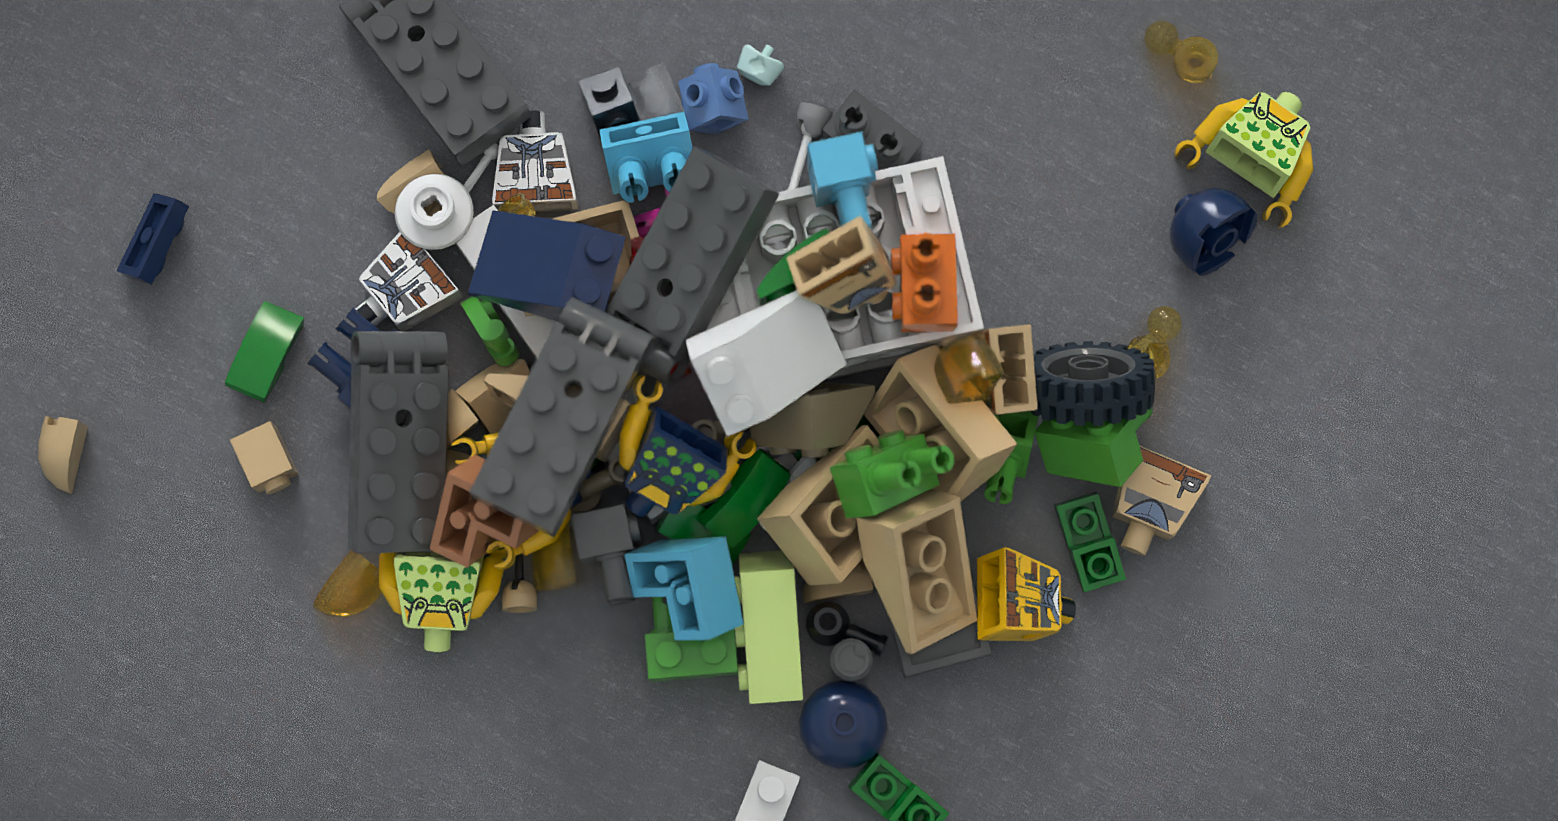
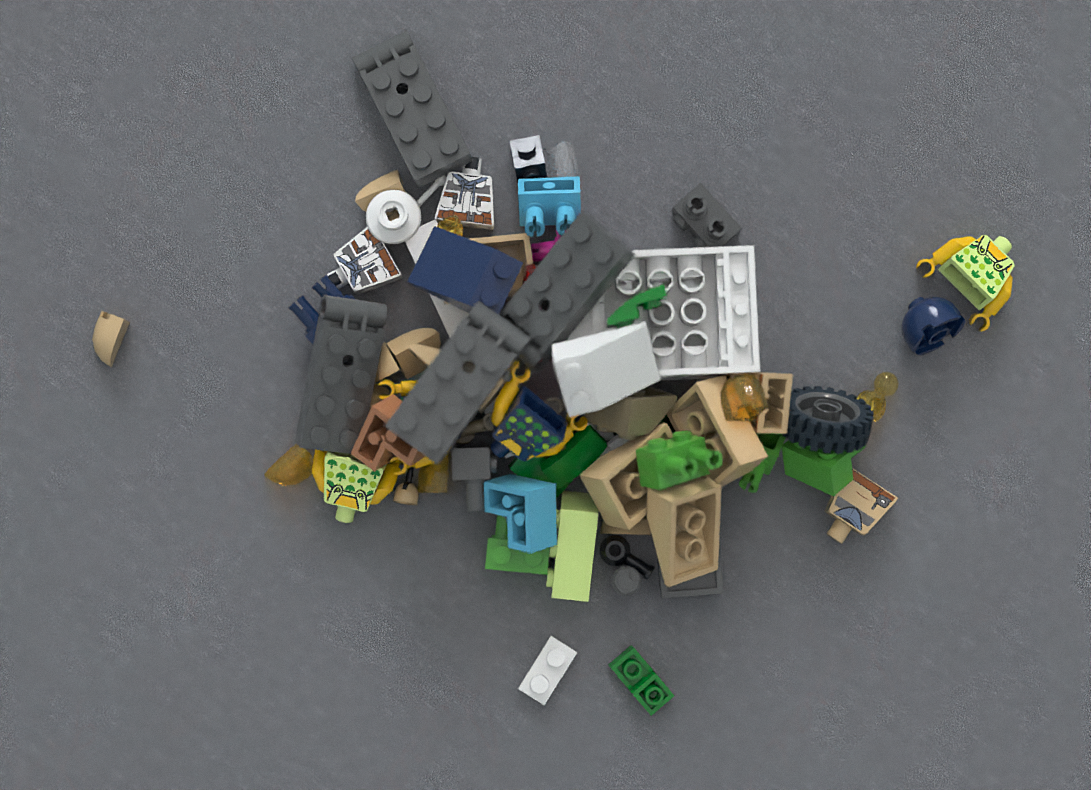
camera: 10 degrees right, 5 degrees up
(153, 238) = (196, 199): dark blue plate -> none
(264, 351) = (259, 292): green slope -> none
(265, 458) = (248, 367): tan brick -> none
(491, 330) = (418, 307): bright green plate -> none
(713, 99) = (601, 171): medium blue brick -> none
(759, 66) = (636, 152): light aqua piece -> none
(810, 121) = (667, 199): light grey hinge -> none
(842, 175) = (682, 248): medium azure brick -> none
(843, 268) = (669, 316): tan torso -> none
(843, 724) = (612, 622): dark blue cylinder -> none
(926, 283) = (725, 334): orange brick -> none
(1019, 598) = (749, 558): yellow torso -> none
(1090, 541) = (805, 526): green slope -> none
(1163, 38) = (924, 183): clear yellow plate -> none

